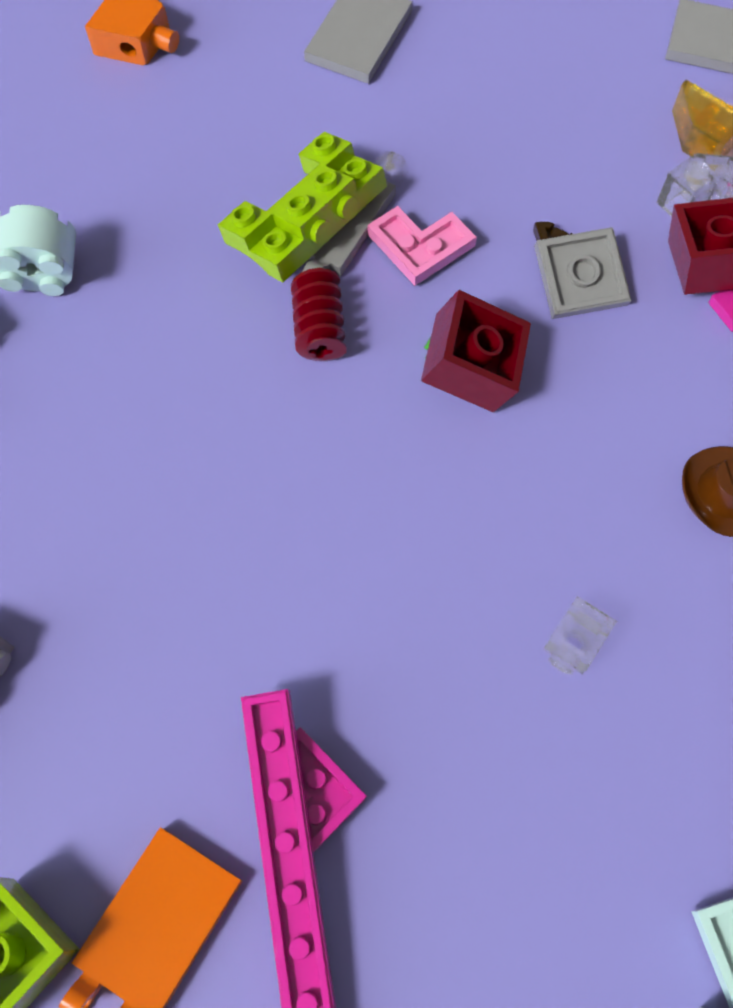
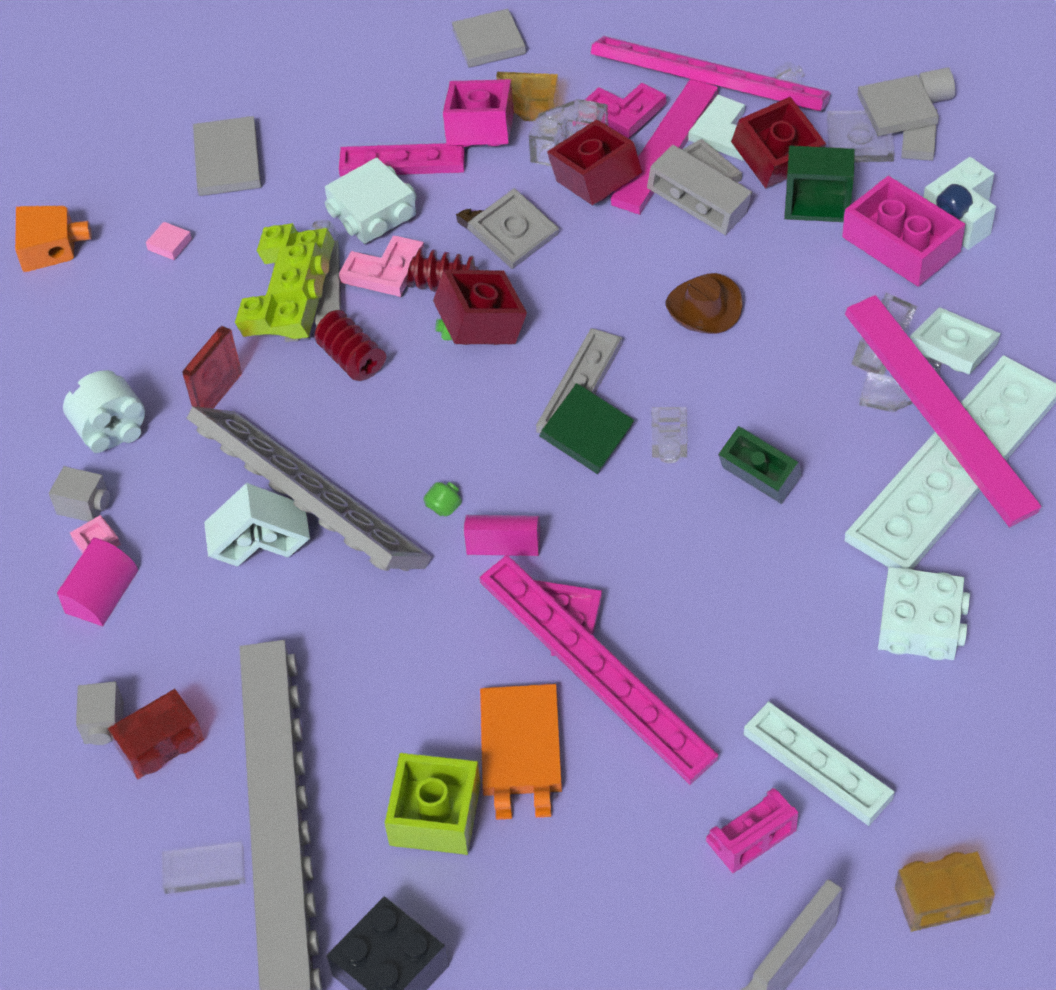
camera: 30 degrees left, 15 degrees down
(76, 471) = (254, 521): none -> light aqua brick
(157, 471) = (309, 490): none -> light grey plate
(160, 267) = (213, 370): none -> clear red tile
(240, 94) = (168, 240): none -> bright pink tile
(292, 555) = (442, 498): none -> bright green piece
(316, 643) = (502, 535): none -> dark pink brick
(456, 158) = (370, 200): none -> light aqua brick
(456, 273) = (428, 271): none -> dark red piece
(494, 570) = (586, 428): none -> dark green tile
(526, 128) = (406, 158): none -> dark pink tile
(526, 505) = (586, 369): none -> light grey tile
(634, 117) = (478, 112): none -> dark pink brick
(653, 754) = (760, 464): none -> dark green brick

